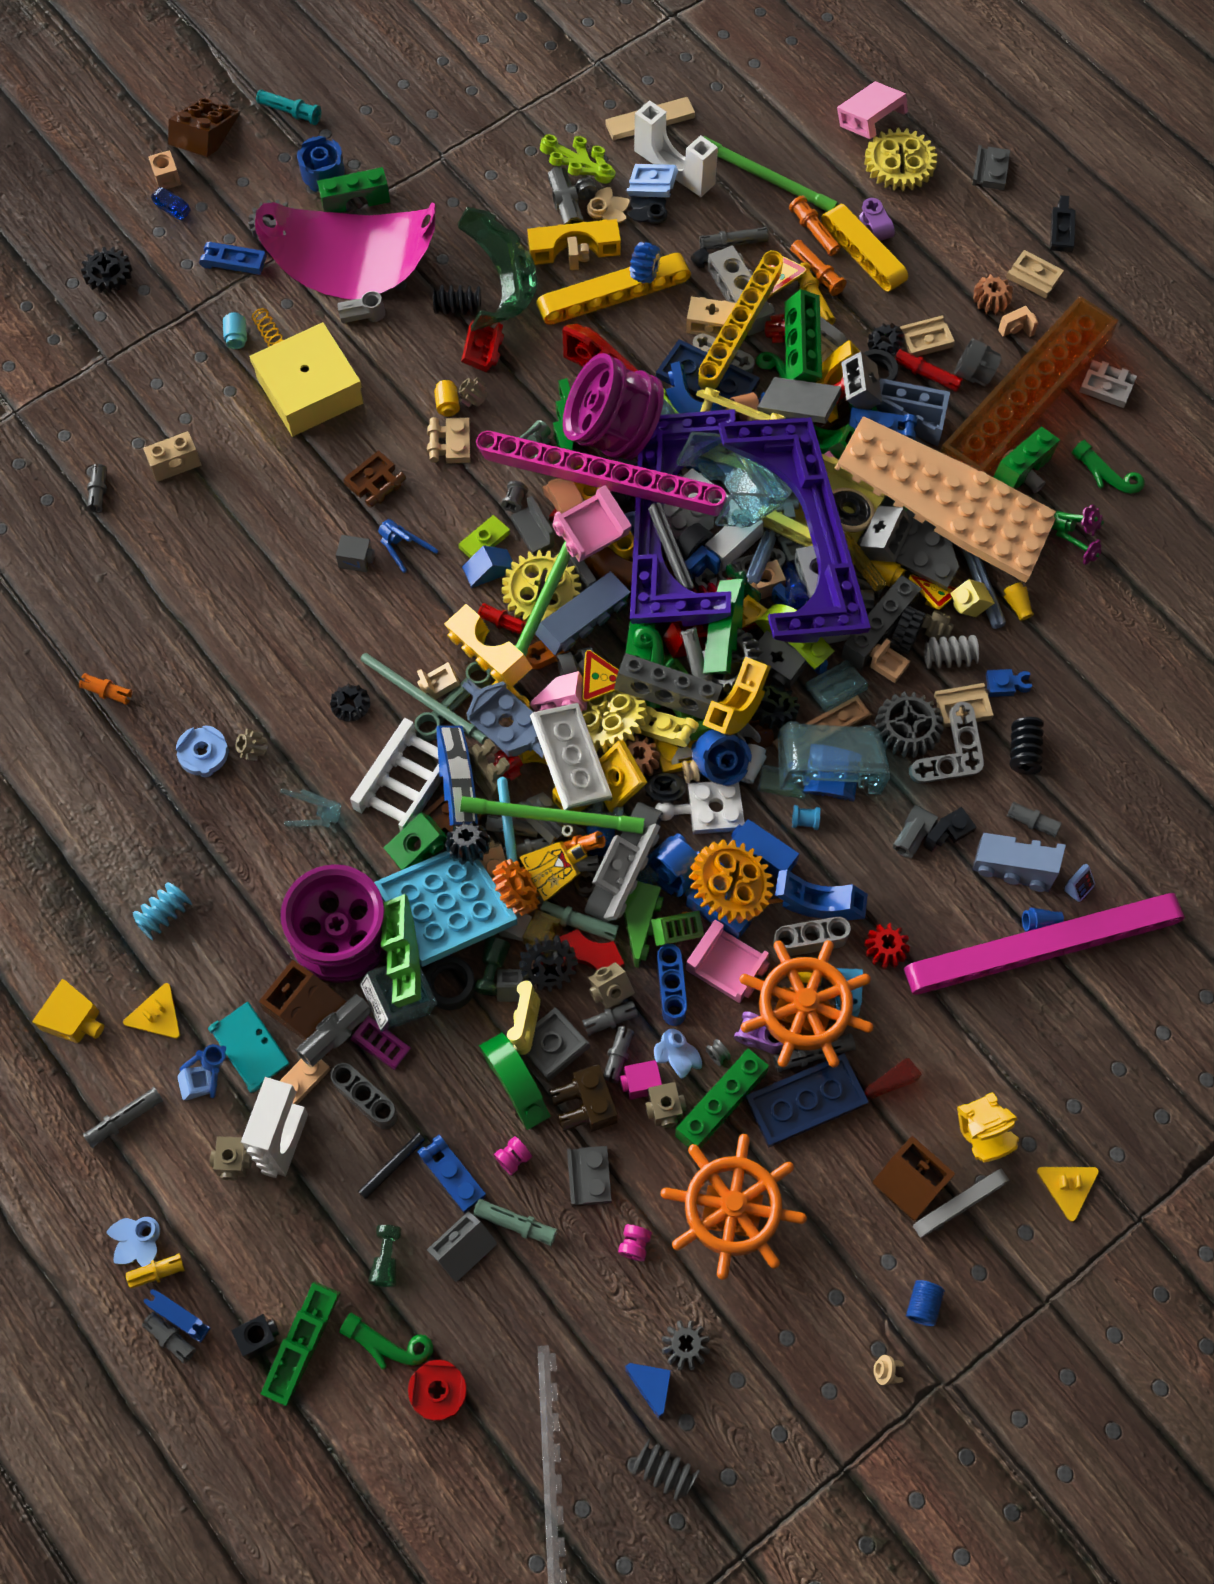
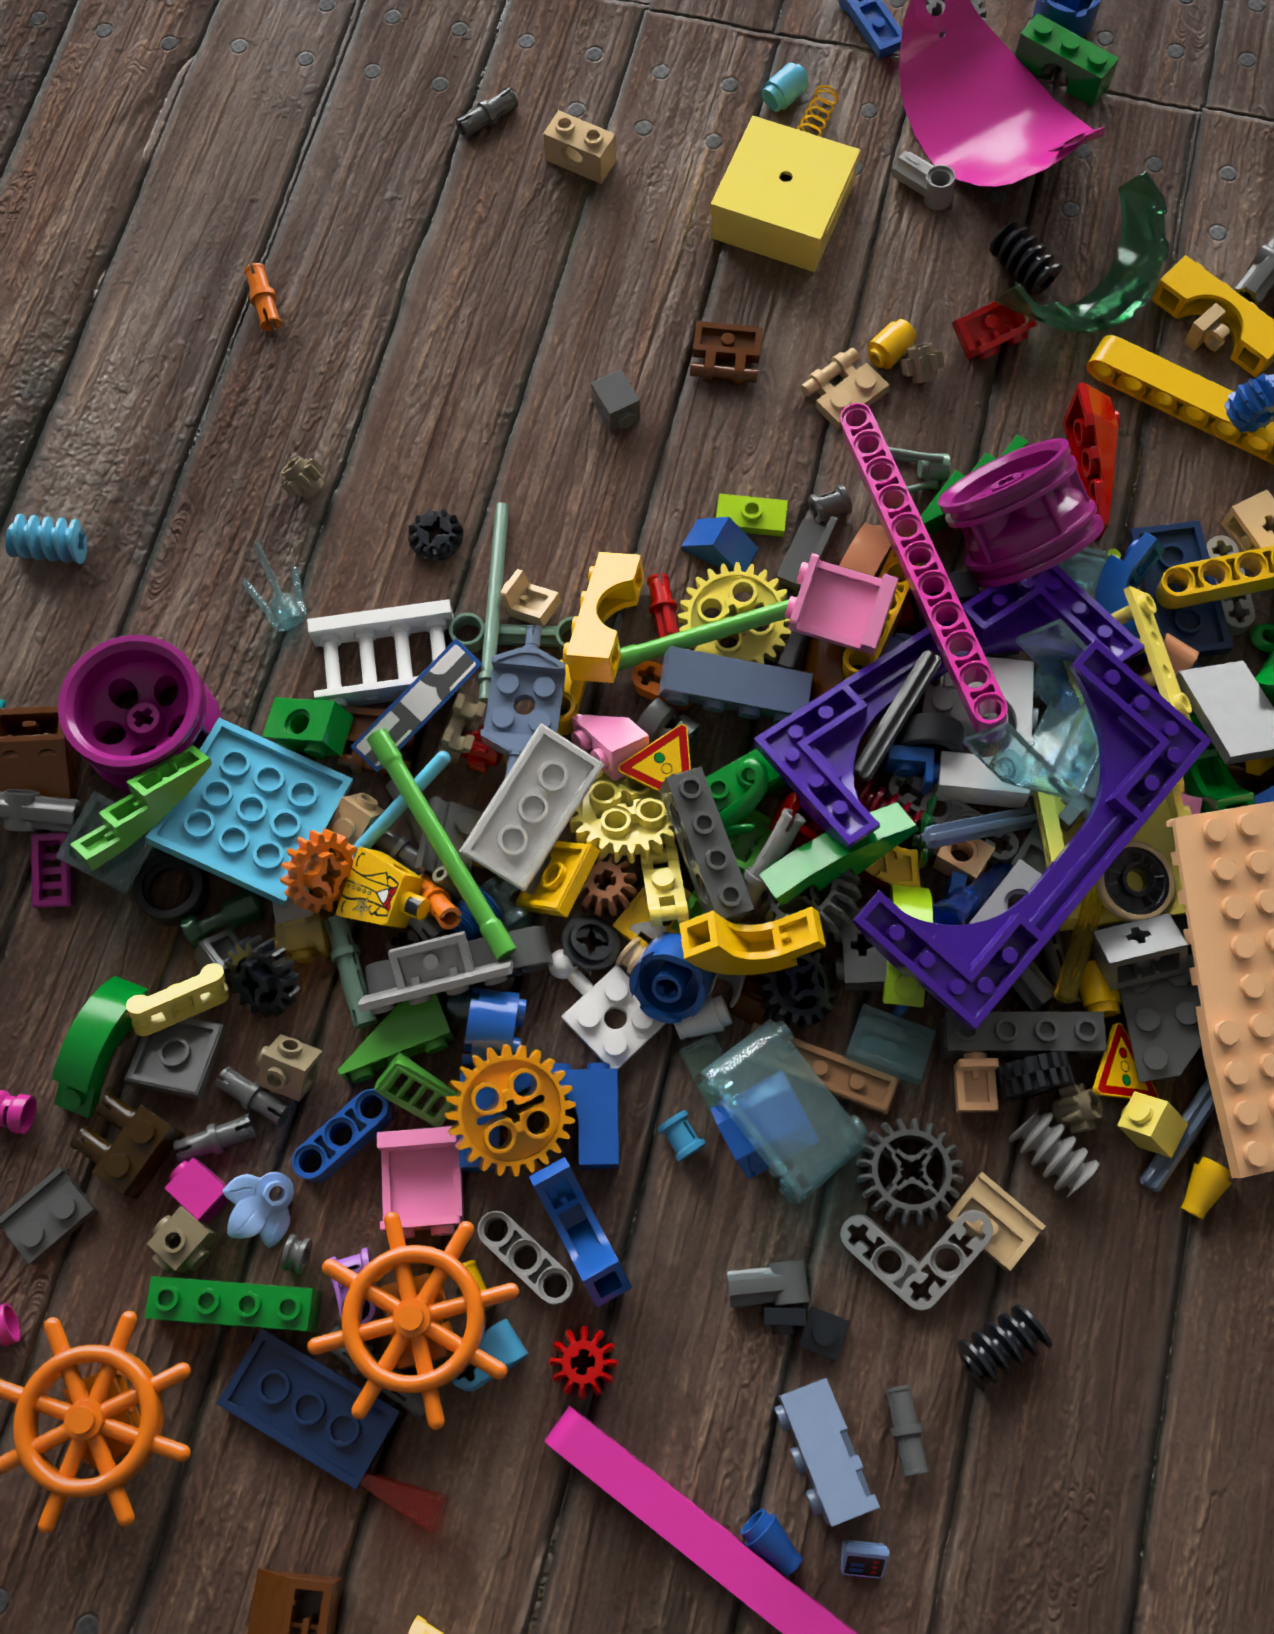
camera: 55 degrees right, 5 degrees up
(199, 738) = (269, 454): light blue plate -> none
(394, 533) = (674, 420): blue plant -> none
(468, 843) = (339, 779): black gear -> none
(592, 953) = (323, 1021): red tile -> none
(1004, 682) = (1072, 1251): blue plate -> none

